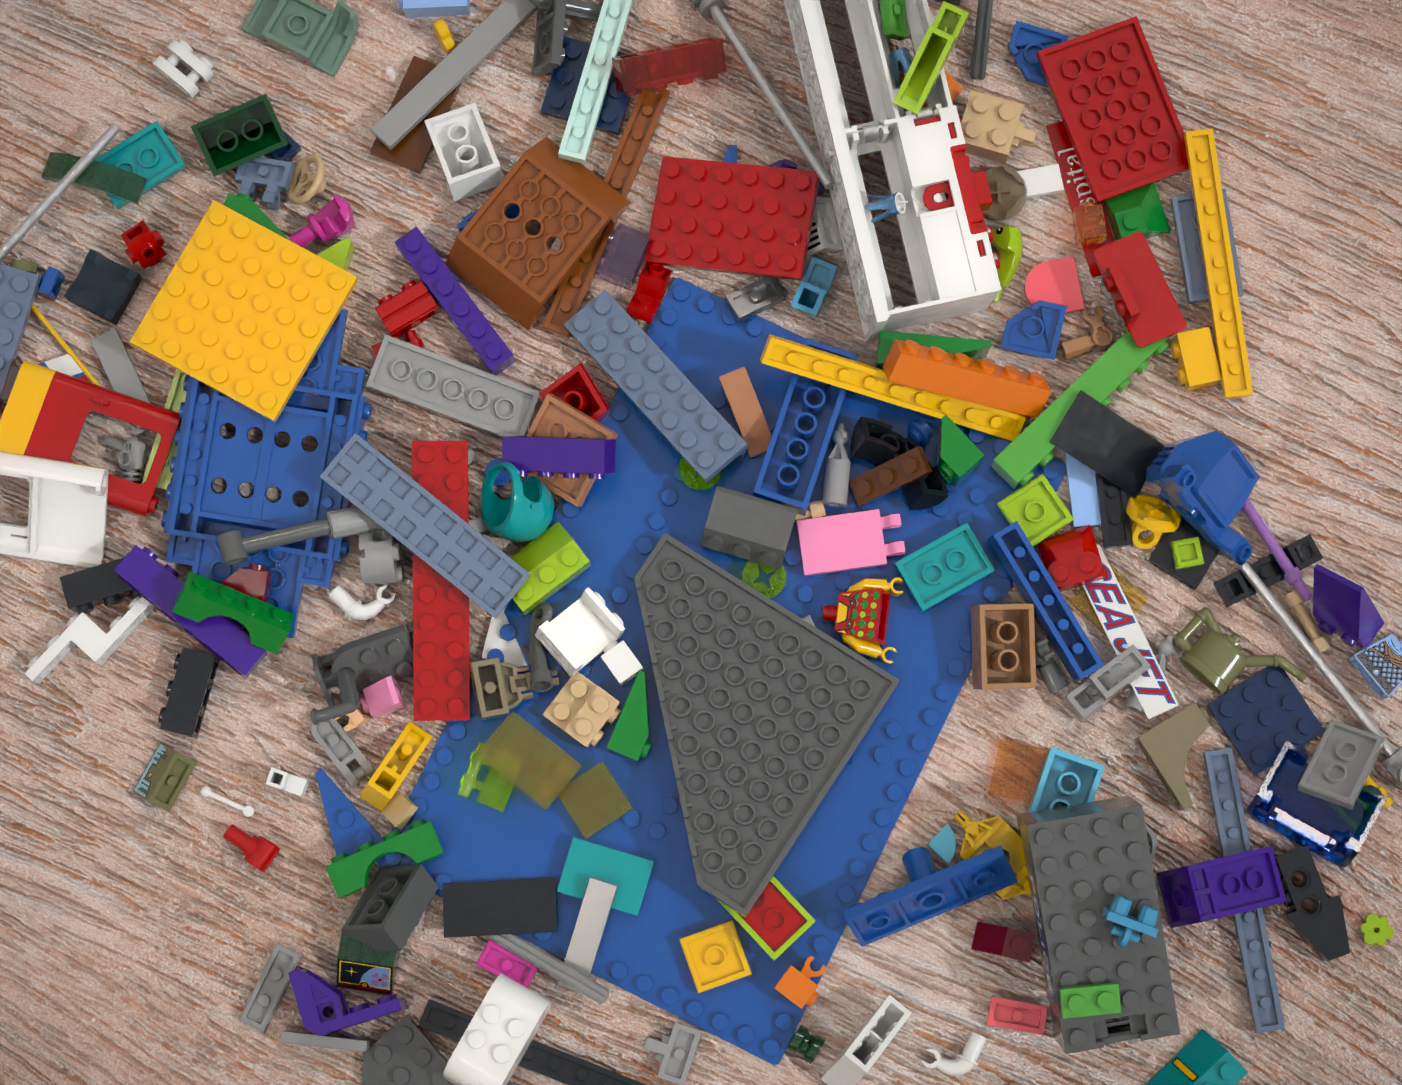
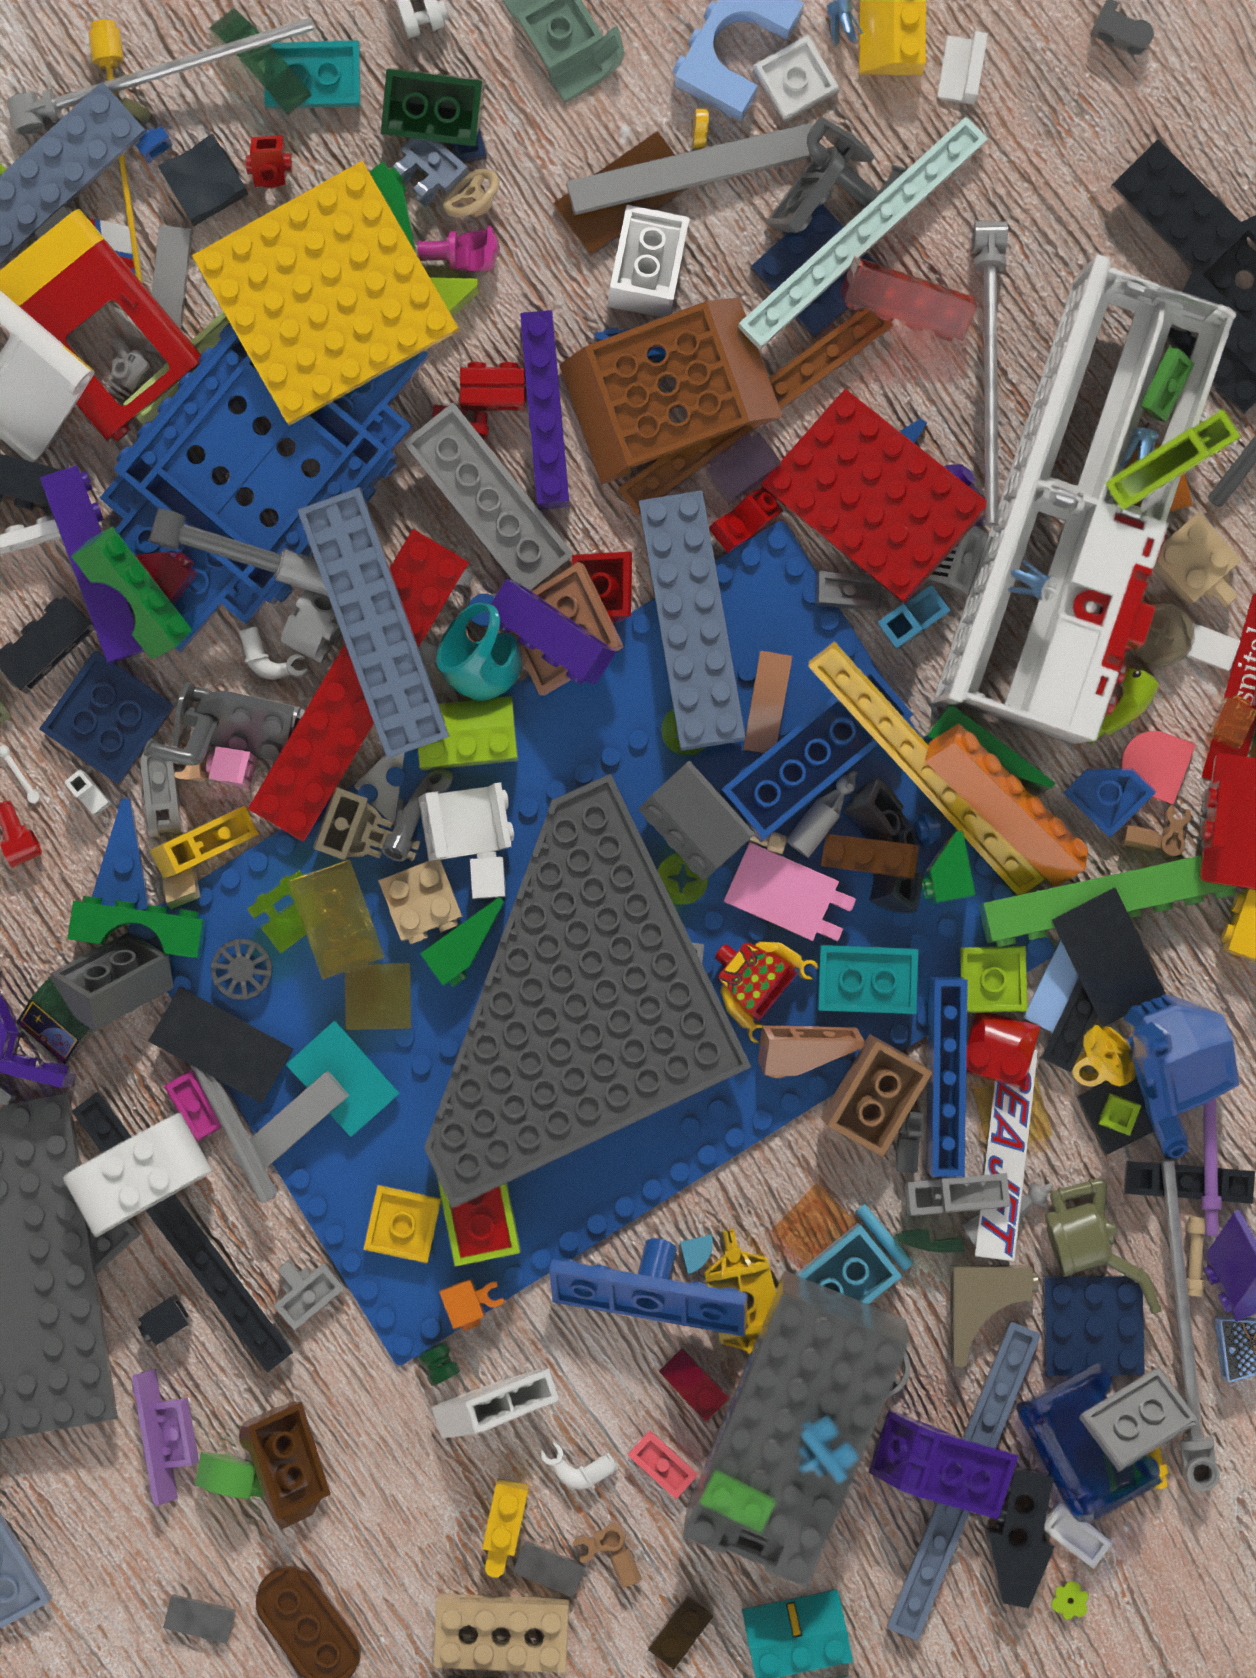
camera: 25 degrees right, 5 degrees up
(268, 719) = (107, 717): none -> dark blue plate
(481, 842) = (241, 969): none -> dark grey wheel
(929, 645) = (802, 1048): none -> nougat slope
(1073, 748) = (884, 1237): none -> medium azure piece
(1102, 732) = (921, 1240): none -> clear green slope
(1350, 879) = (1076, 1536): none -> white tile

